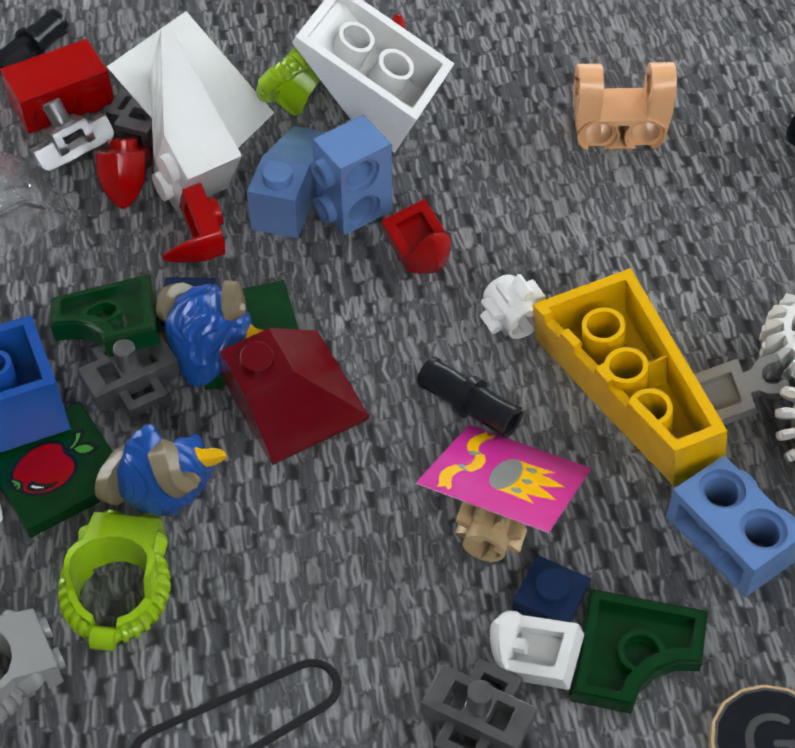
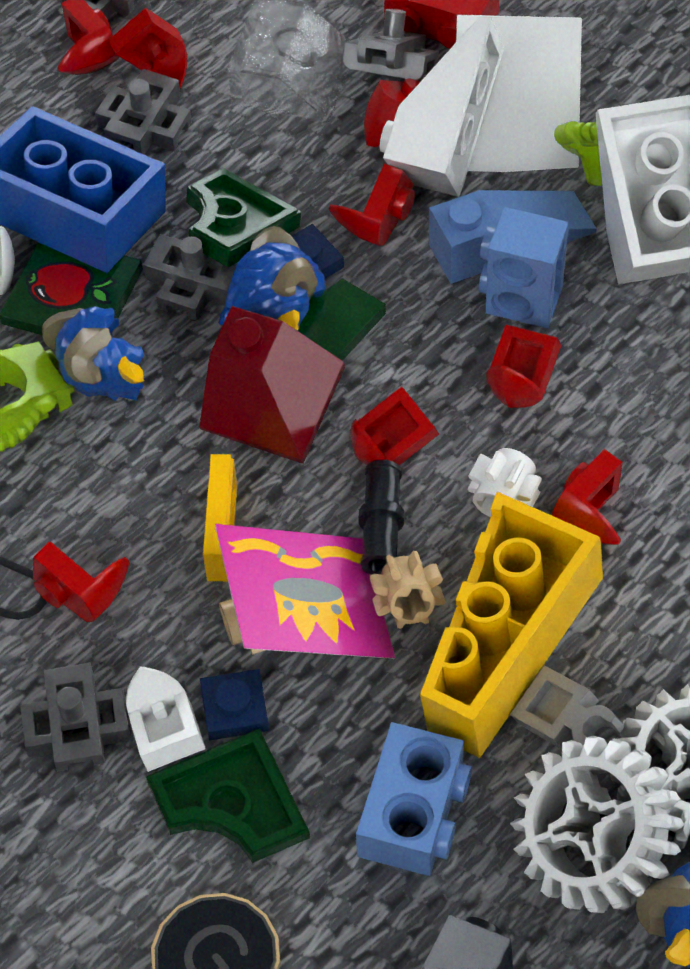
camera: 55 degrees right, 5 degrees up
(350, 635) = (67, 584): none -> red plate
(380, 494) = (219, 510): none -> yellow tile
(401, 343) = (391, 430): none -> red plate
(553, 416) = (407, 589): none -> tan gear
(561, 266) = (587, 492): none -> red plate

